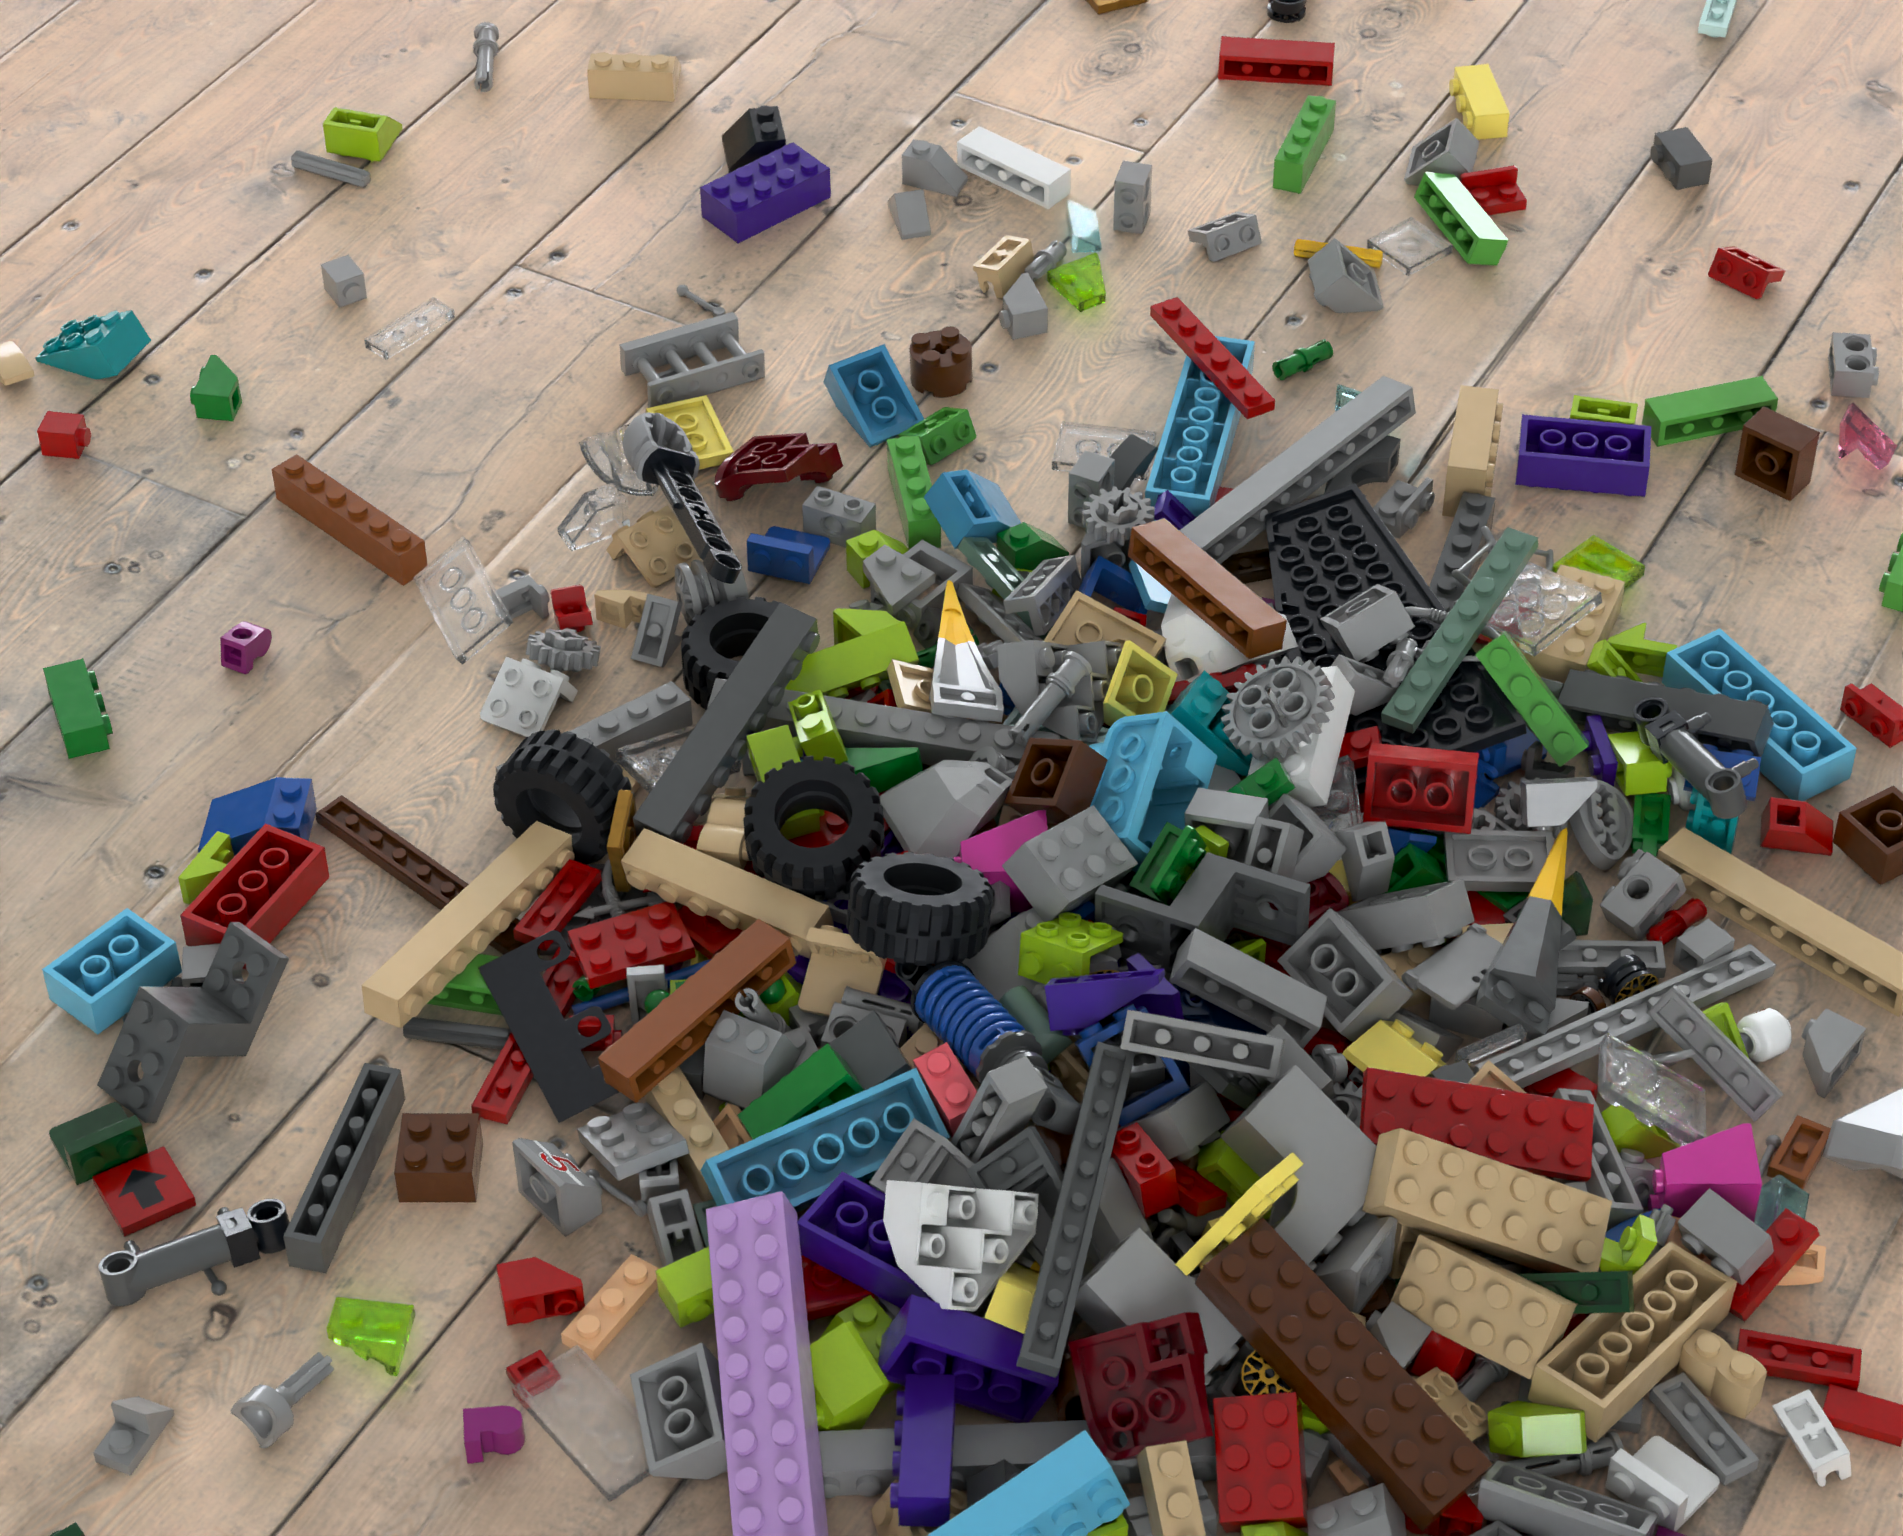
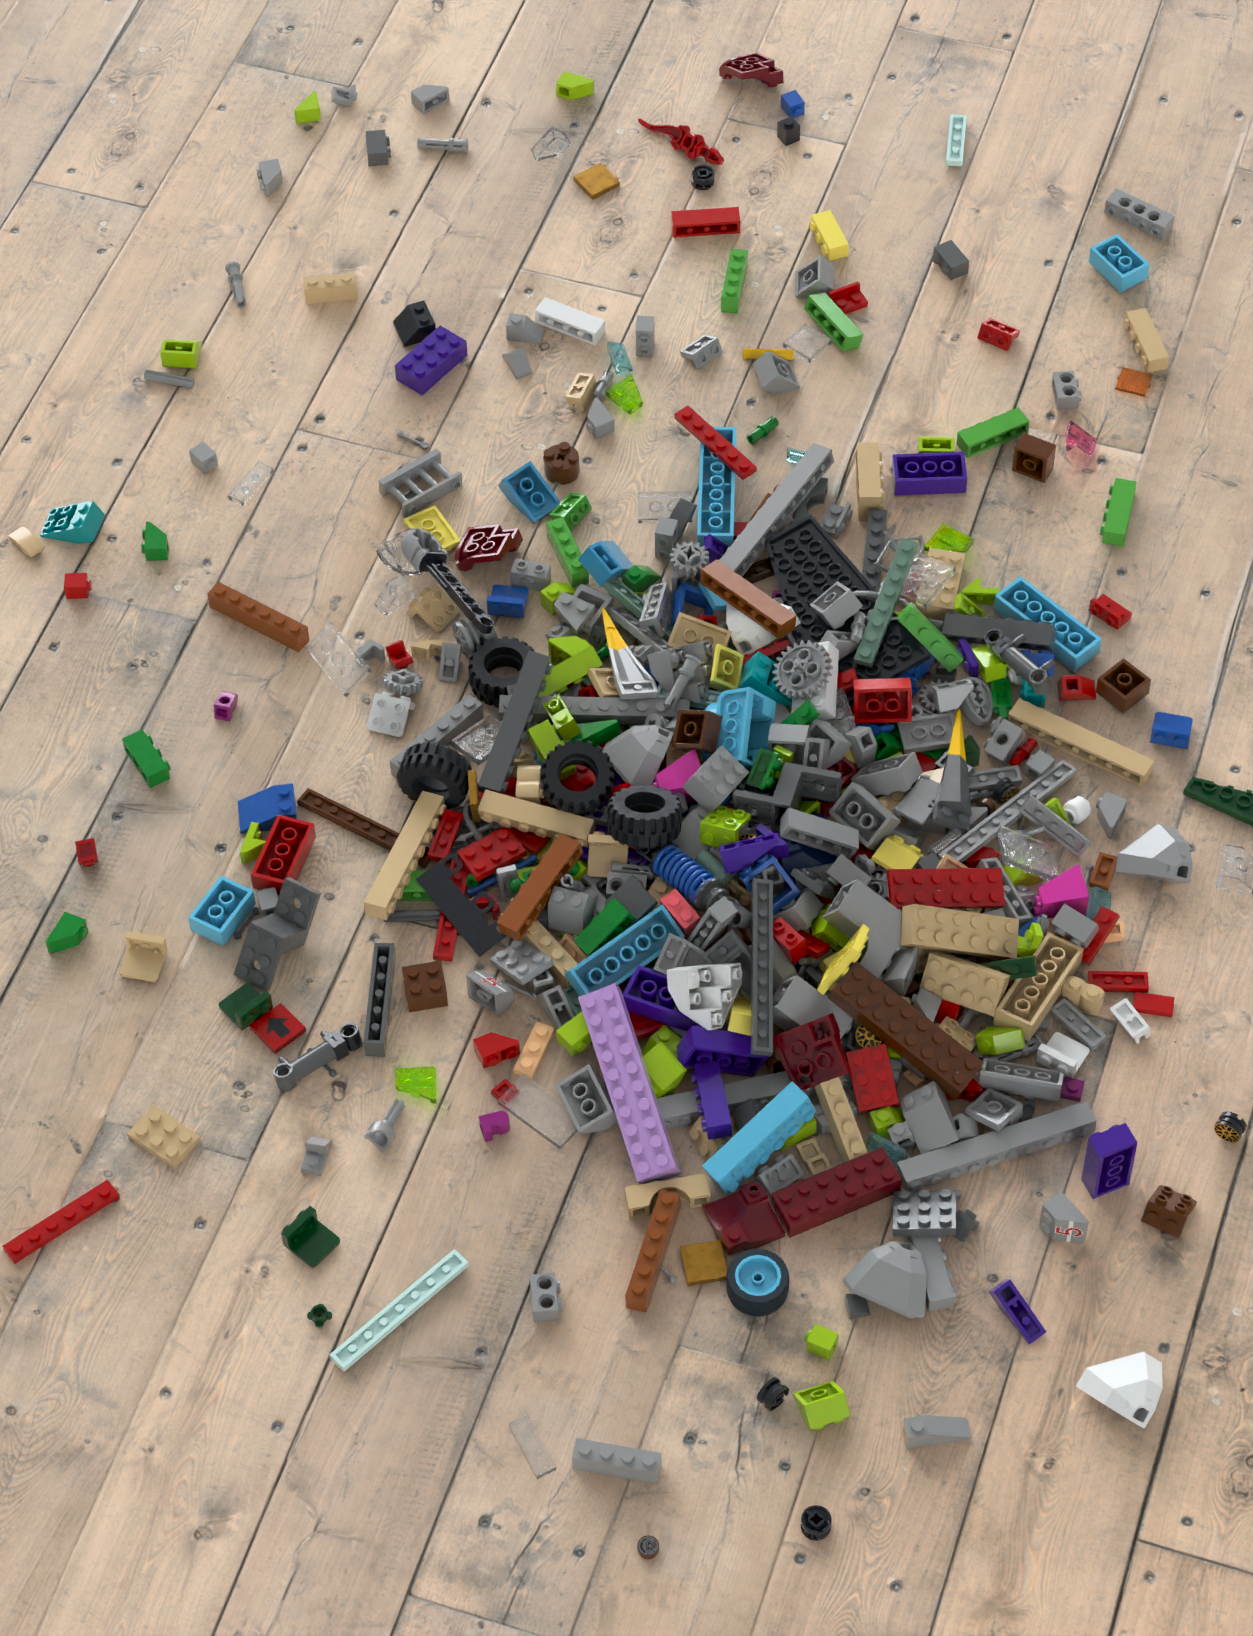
camera: 10 degrees left, 10 degrees up
(1203, 1044) = (807, 872): light grey brick -> none

